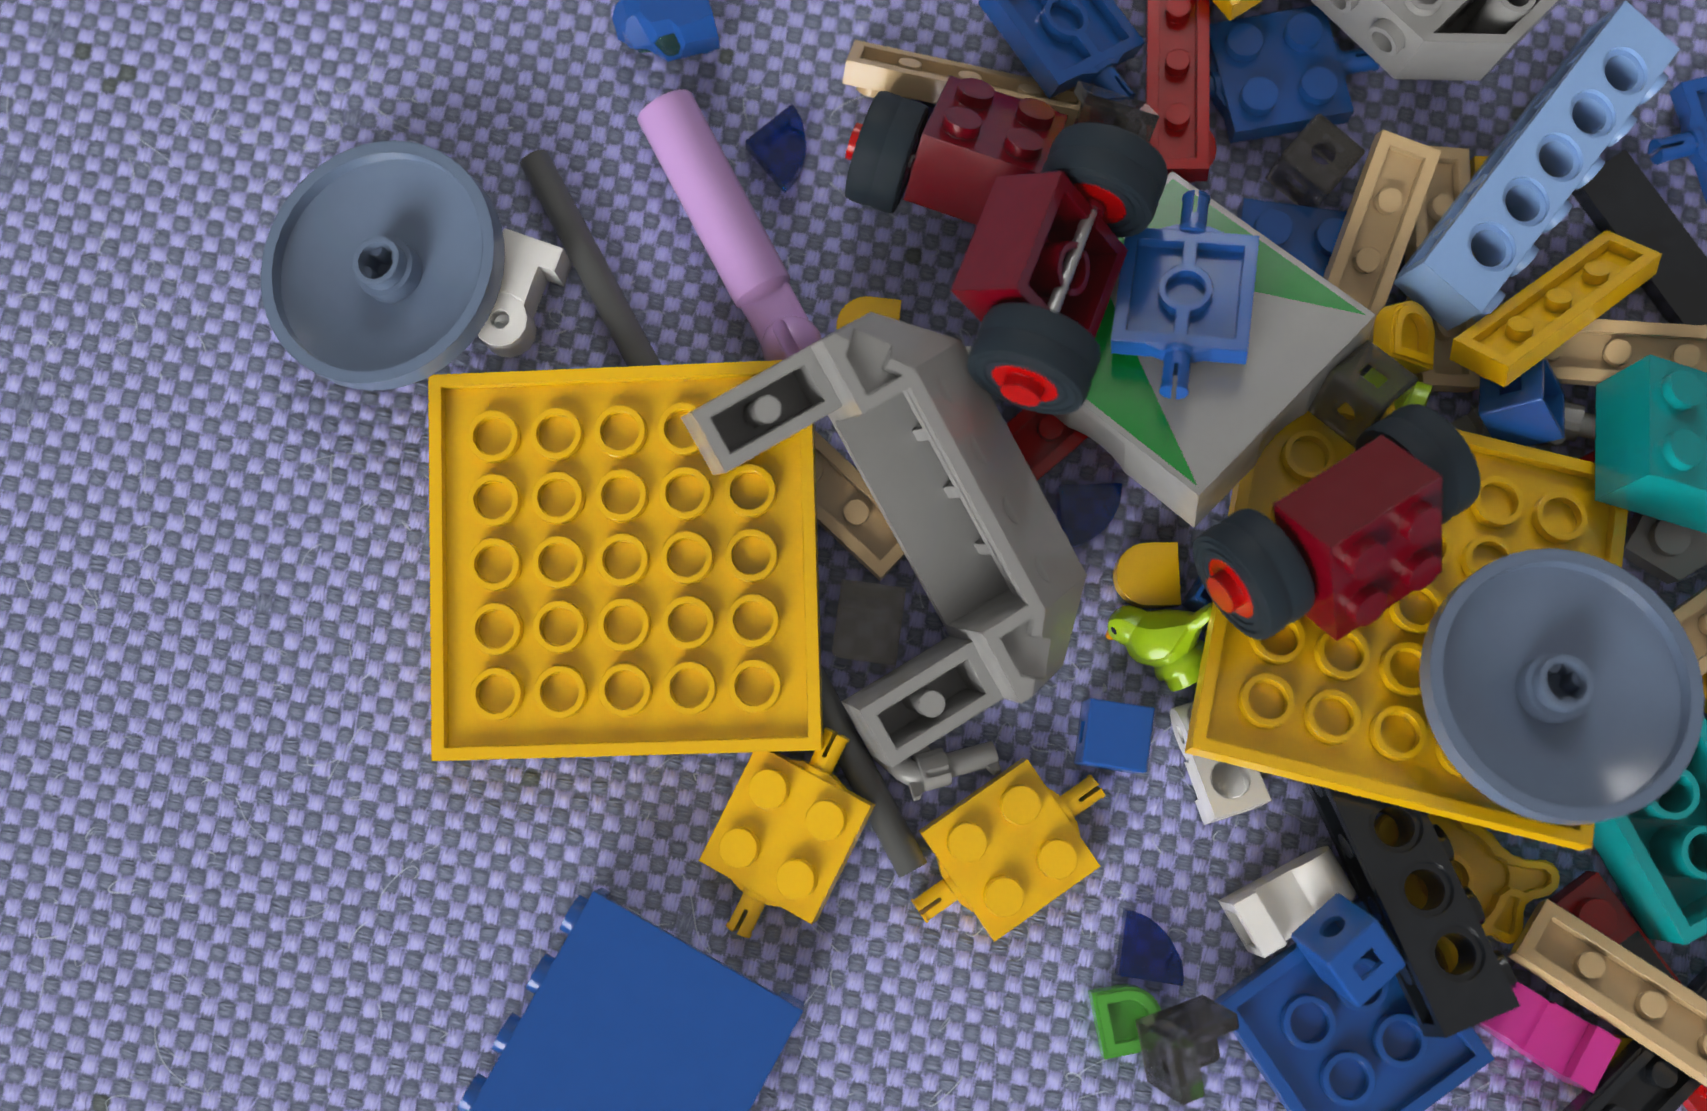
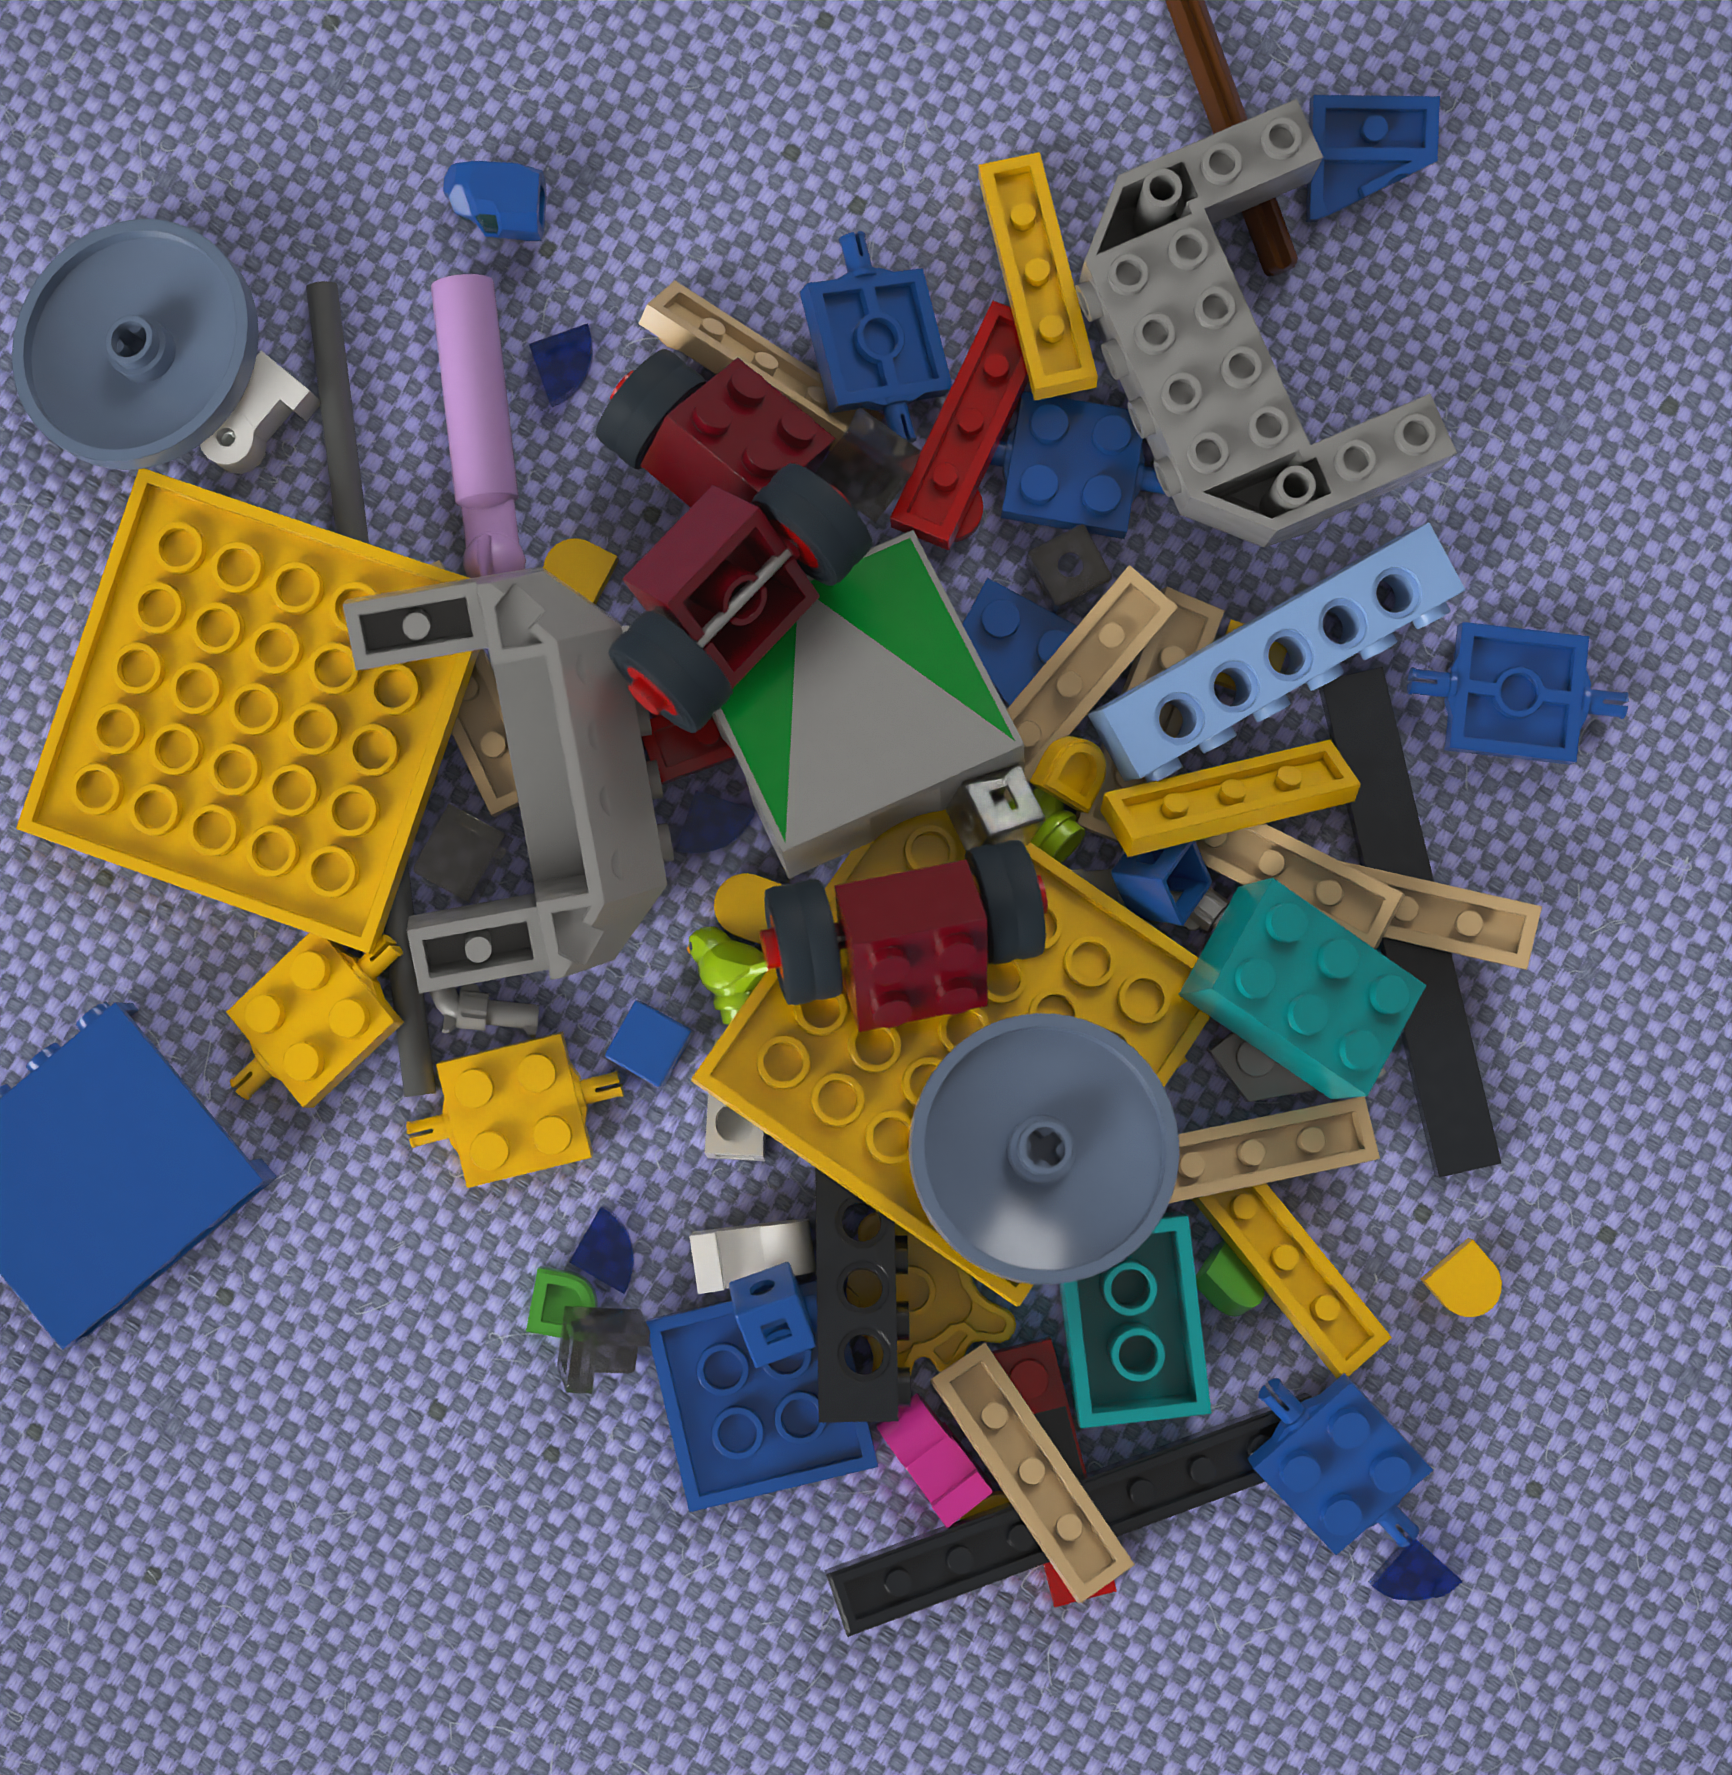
camera: 30 degrees right, 5 degrees up
(1186, 295) = (855, 659): blue plate -> none

